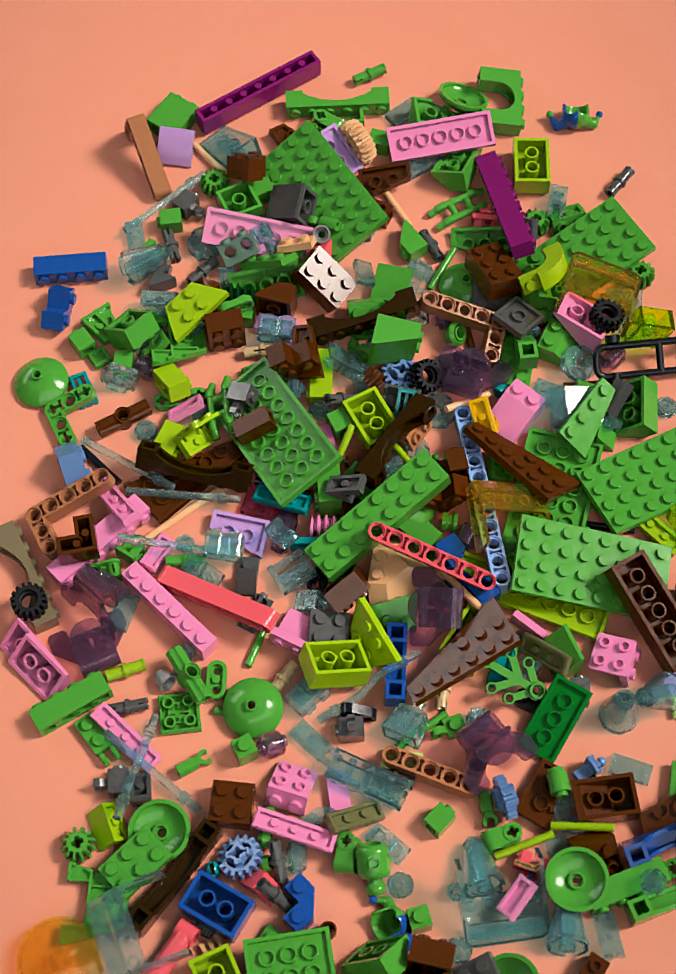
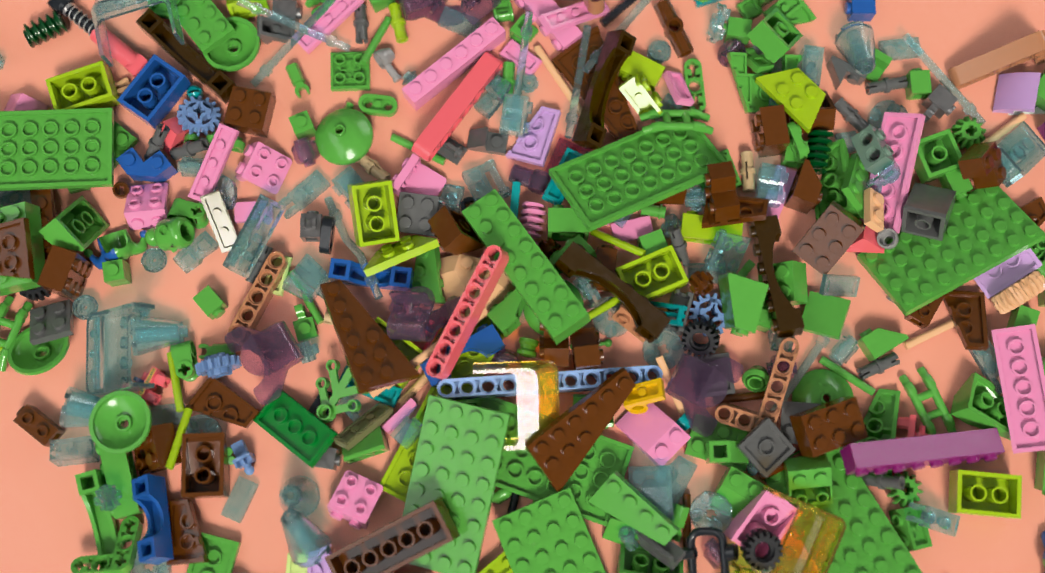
camera: 95 degrees right, 15 degrees up
(147, 688) = (375, 41): none -> bright green bar
(172, 382) = (709, 75): lime brick -> none
(188, 675) = (368, 82): bright green piece -> none
(241, 396) = (680, 139): flat silver brick -> none
(253, 425) = (644, 148): reddish brown brick -> none
(280, 534) = (519, 170): clear light blue bracket -> none
(332, 223) = (904, 244): bright green bar -> none
(341, 898) = (146, 205): none -> bright pink bracket
(346, 486) = (558, 233): dark grey slope -> none
(517, 897) = (117, 364): bright pink tile -> none
(545, 613) = (407, 432): none -> clear light blue brick
(548, 273) = (815, 487): lime arch -> none
(558, 782) = (226, 420): bright green brick -> none

